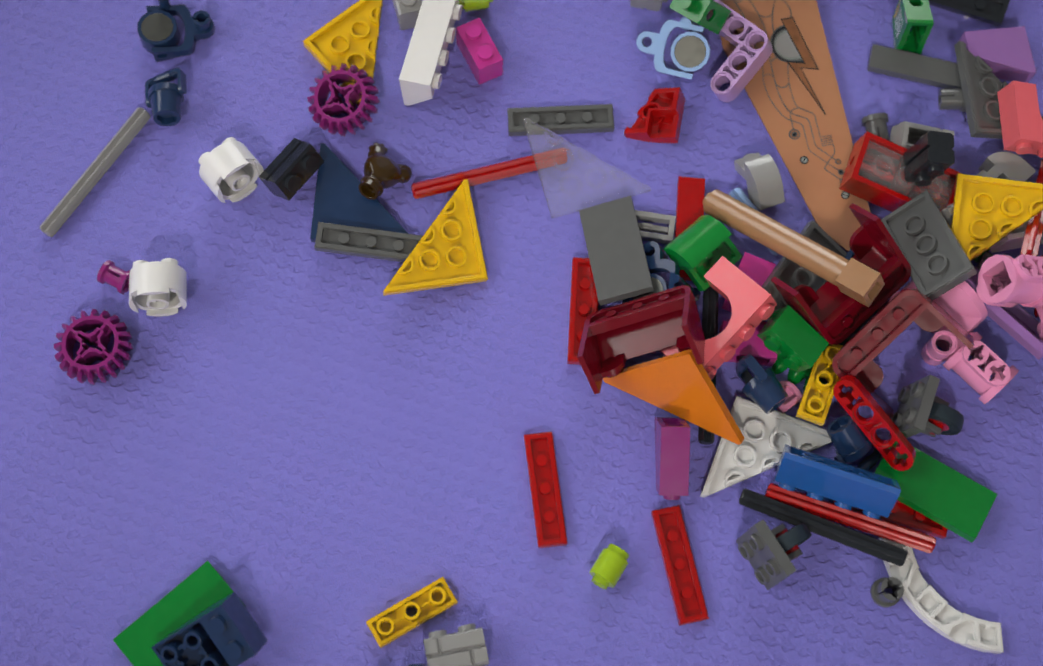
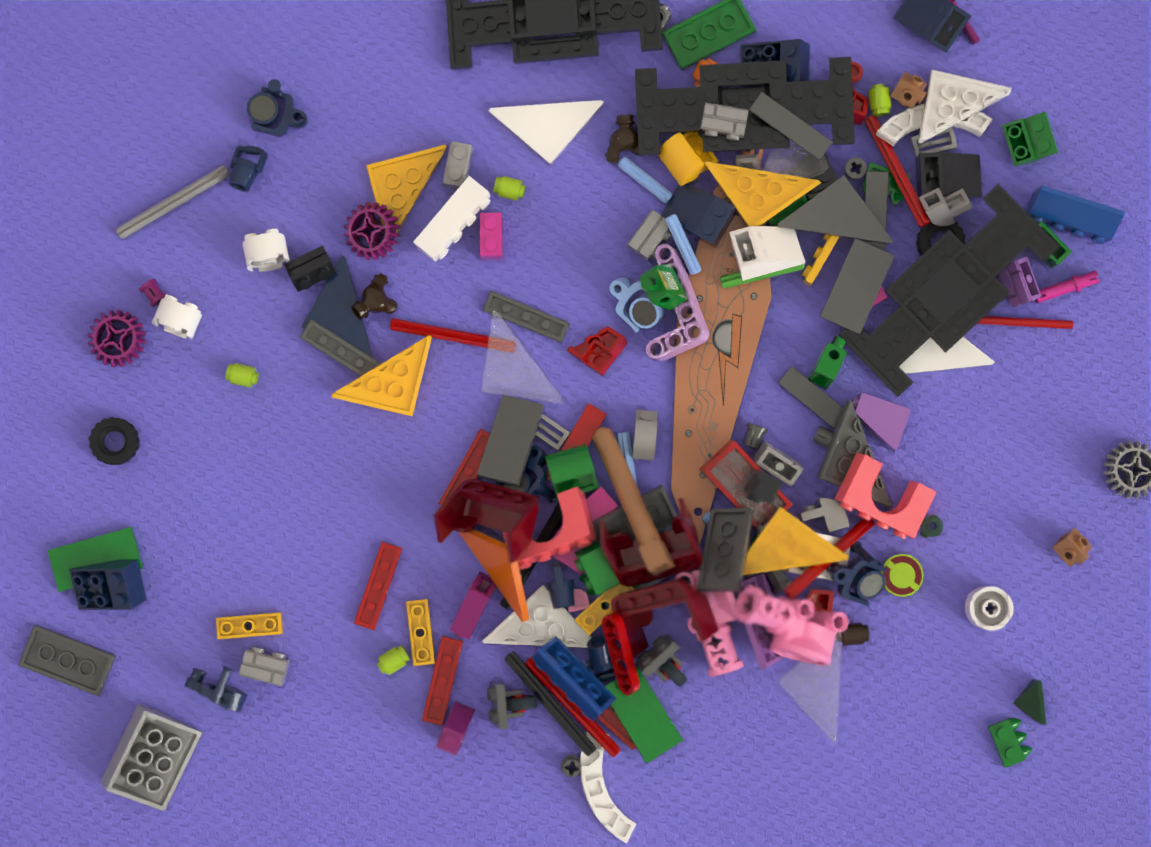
camera: 30 degrees right, 15 degrees up
(141, 445) = (97, 441): none -> black tyre
(265, 321) = (242, 375): none -> lime brick
(632, 535) = (419, 618): none -> yellow tile
(730, 612) = (455, 728): none -> magenta slope

